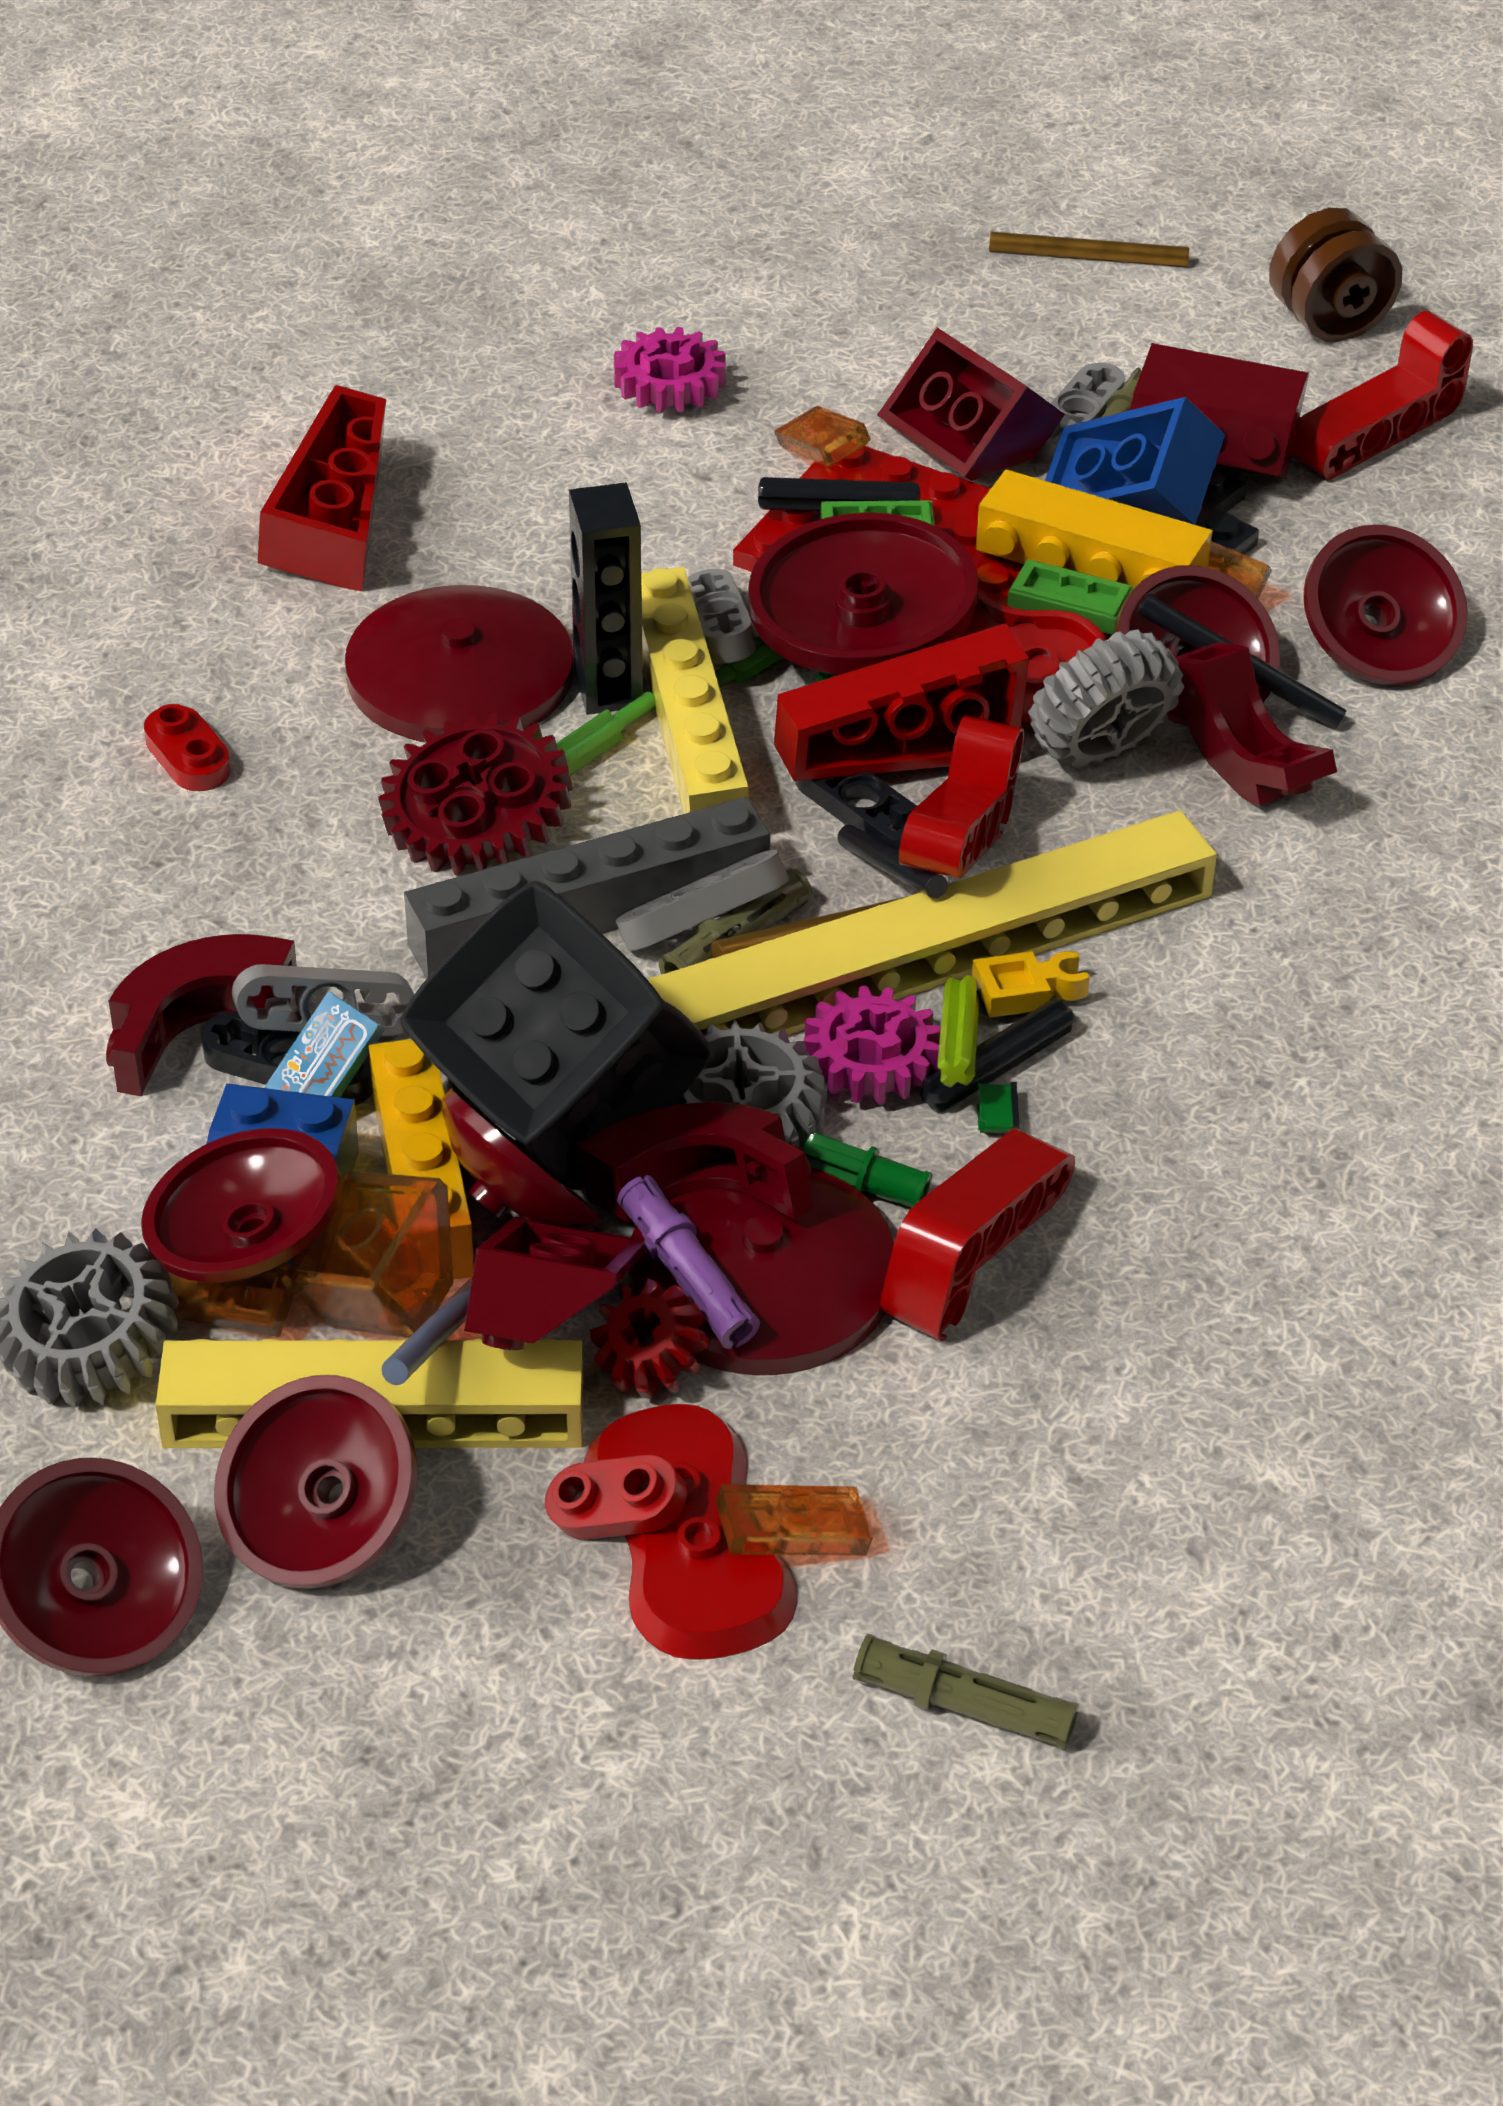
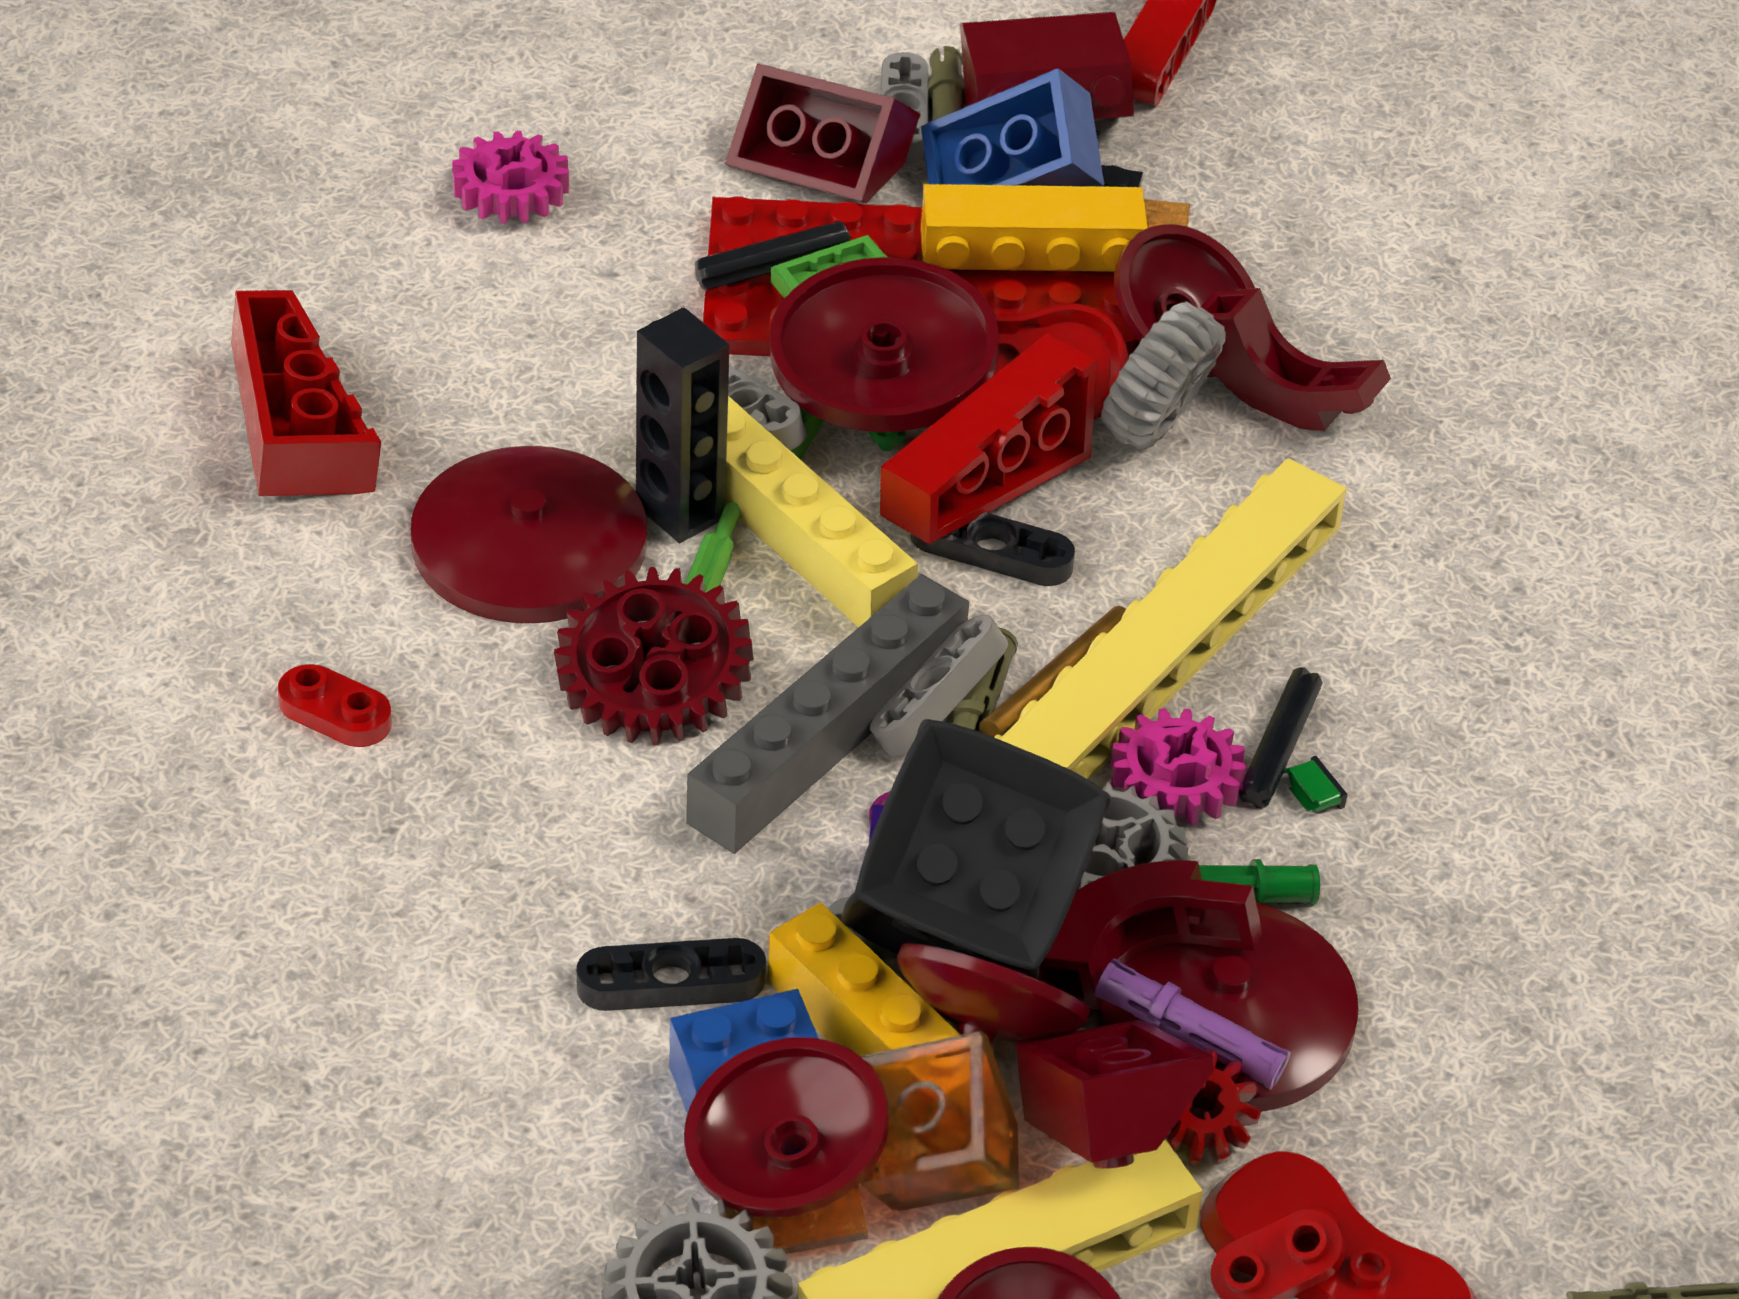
camera: 30 degrees left, 0 degrees up
(179, 991) = (540, 932): dark red arch -> none
(277, 1011) = (656, 898): light grey beam -> none
(327, 1050) = (727, 954): dark azure tile -> none
(427, 1337) = (1040, 1175): sand blue bar -> none
(793, 1520) = (1432, 1219): clear orange plate -> none
(822, 435) = (706, 200): clear orange plate -> none
(887, 859) = (1076, 590): black bar -> none
(958, 1031) = (1250, 728): lime axle -> none
(966, 811) = (1107, 517): red beam -> none
(968, 1224) = (1392, 904): red beam -> none
(1022, 984) = (1257, 666): yellow plate -> none
(1057, 588) = (1040, 285): bright green plate -> none
(1265, 674) = (1199, 292): black bar -> none
(1400, 585) = (1312, 210): dark red dish -> none

